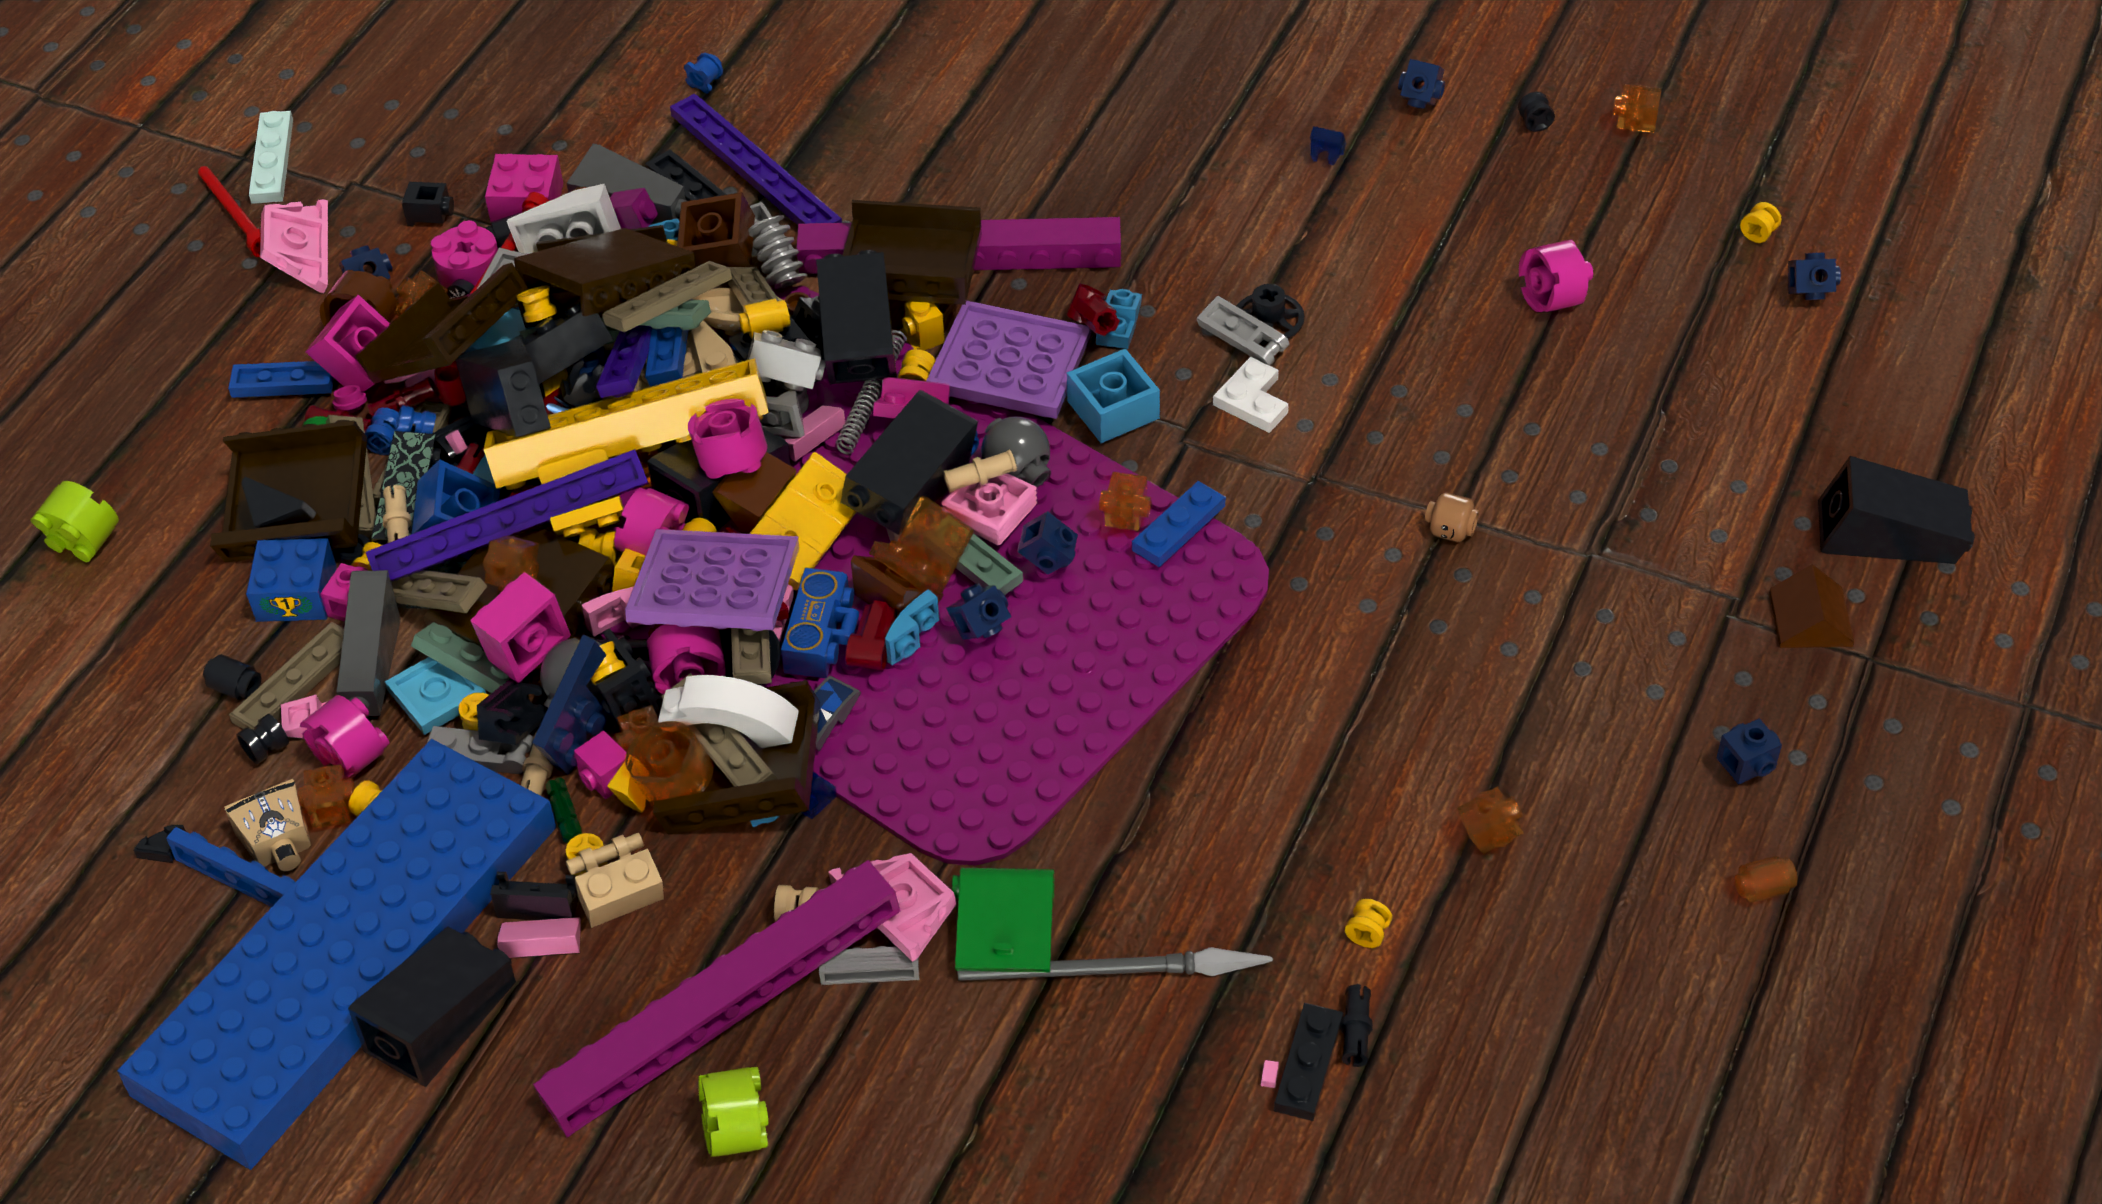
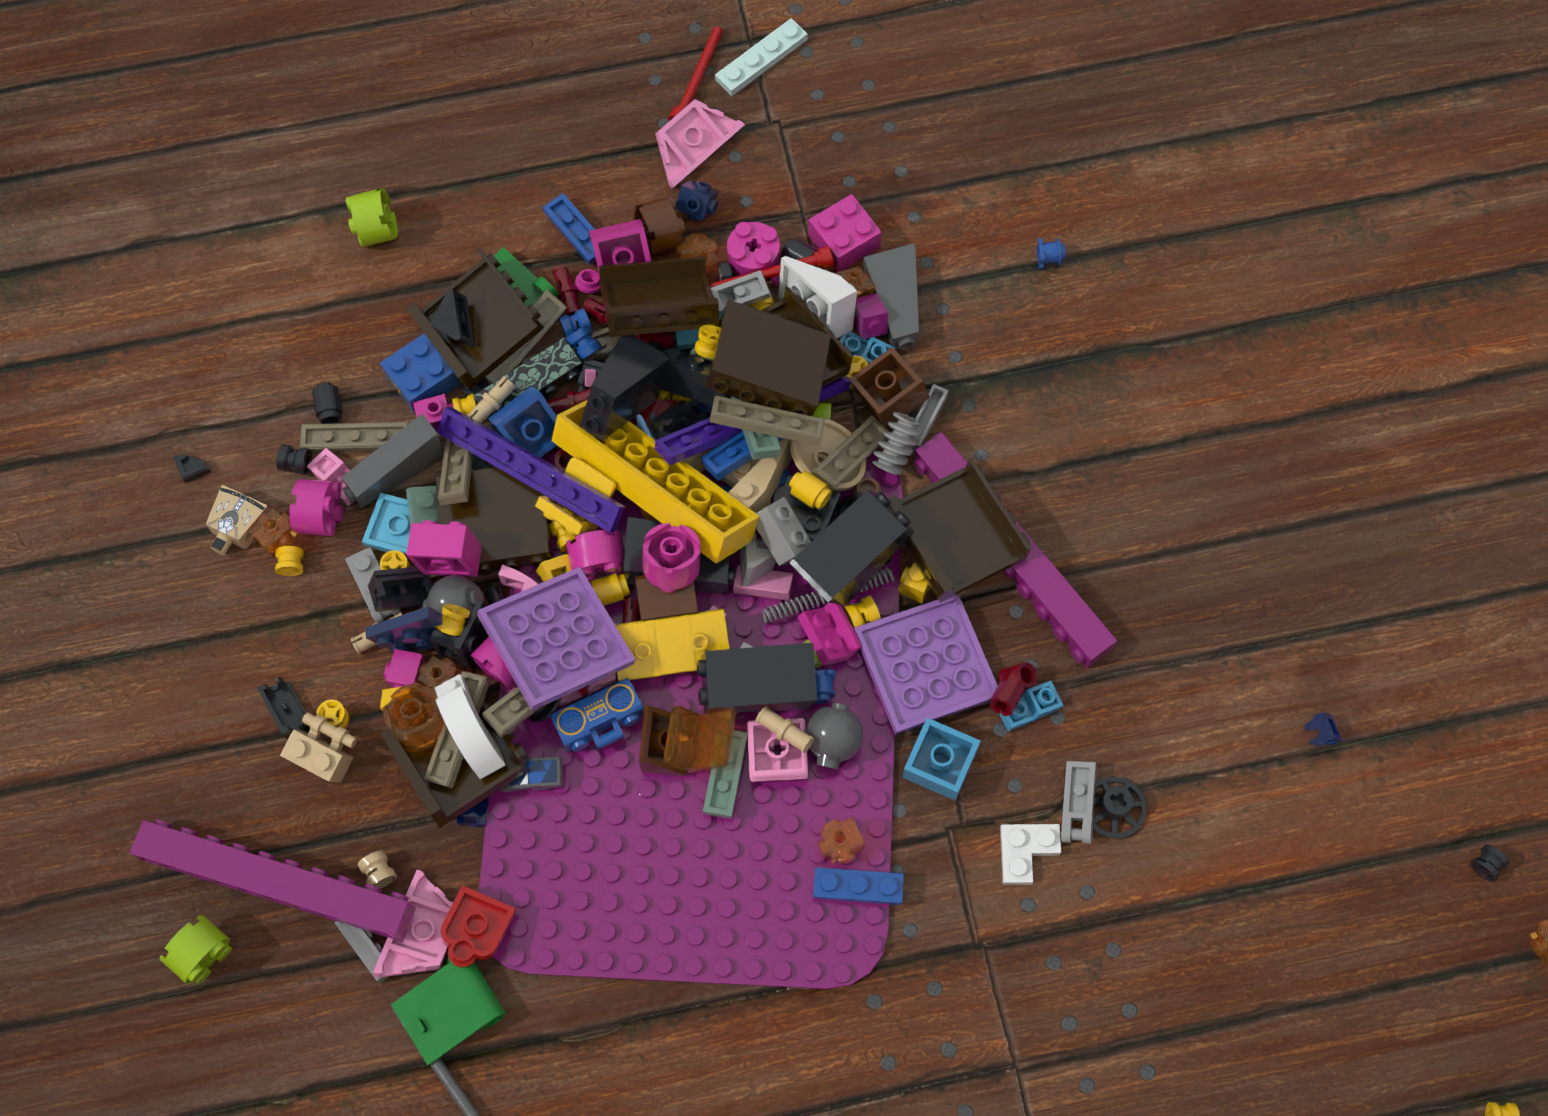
camera: 55 degrees right, 20 degrees up
(227, 867) = (192, 535): blue plate -> none
(275, 1011) = (177, 631): blue brick -> none
(427, 203) = (786, 185): black brick -> none
(431, 1004) = (167, 714): black slope -> none
(508, 559) = (492, 502): clear orange brick -> none
(540, 937) = (261, 732): bright pink slope -> none
(563, 809) = (361, 673): dark green axle -> none
(676, 169) = (934, 327): black plate -> none
(751, 162) = (985, 357): dark purple plate -> none
(868, 645) = (603, 762): dark red piece -> none
(903, 634) = (626, 778): dark azure slope -> none
(941, 840) = (475, 927): none -> red plate
(979, 611) = (675, 814): dark blue brick -> none
(1047, 543) = (765, 816): dark blue brick -> none
(1416, 74) = (1445, 757): dark blue brick -> none
(1452, 517) = (1006, 1073): medium nougat head -> none
(1554, 276) = (1304, 997): dark pink brick -> none

